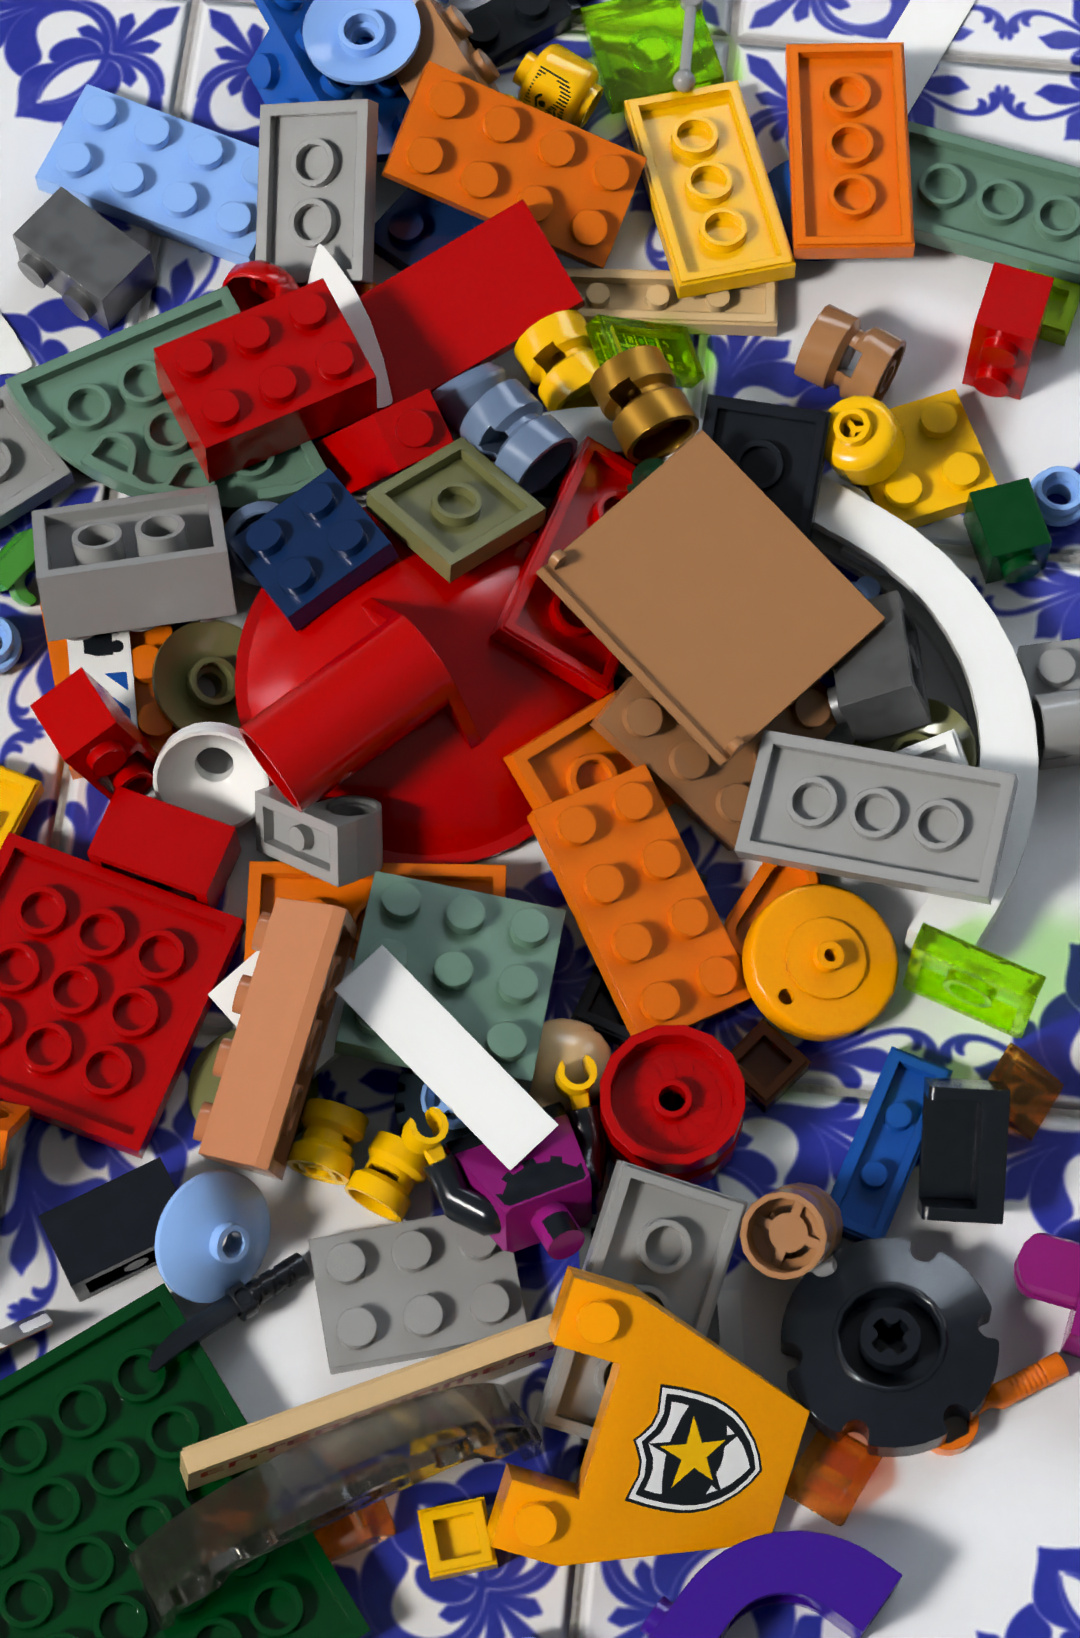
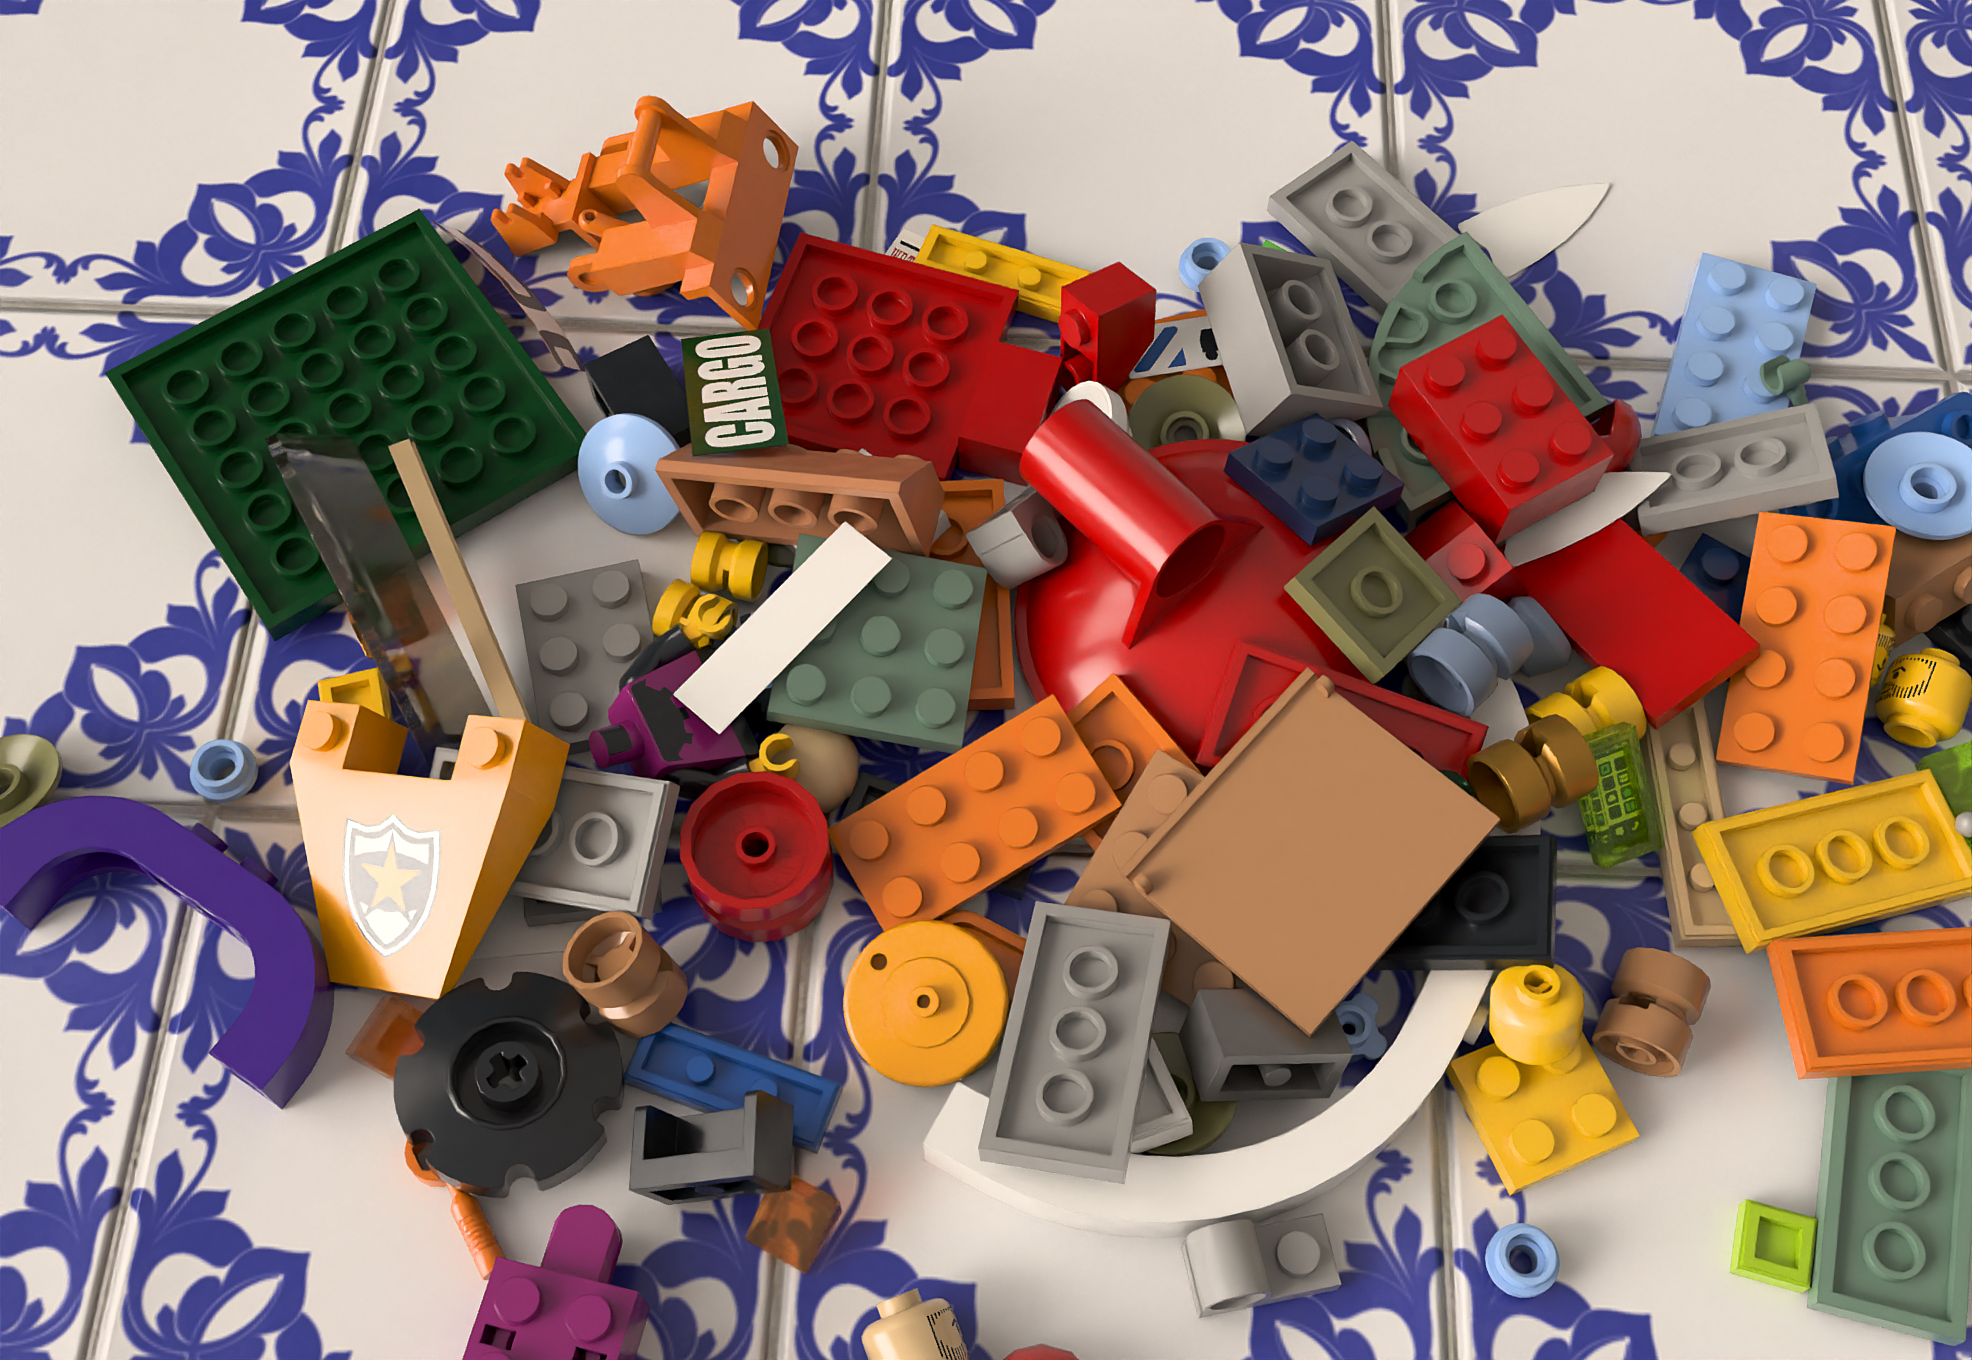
camera: 85 degrees right, 5 degrees down
(84, 259) = (1618, 296): flat silver brick -> none
(142, 1112) = (733, 392): none -> sticker
(213, 129) = (1786, 376): none -> sand green hand
(239, 1301) = (578, 506): black piece -> none
(768, 1064) = (818, 959): reddish brown tile -> none
(972, 981) = (898, 1150): clear neon green tile -> none
(1007, 331) = (1715, 1179): red brick -> none
(1007, 532) = (1462, 1196): dark green brick -> none

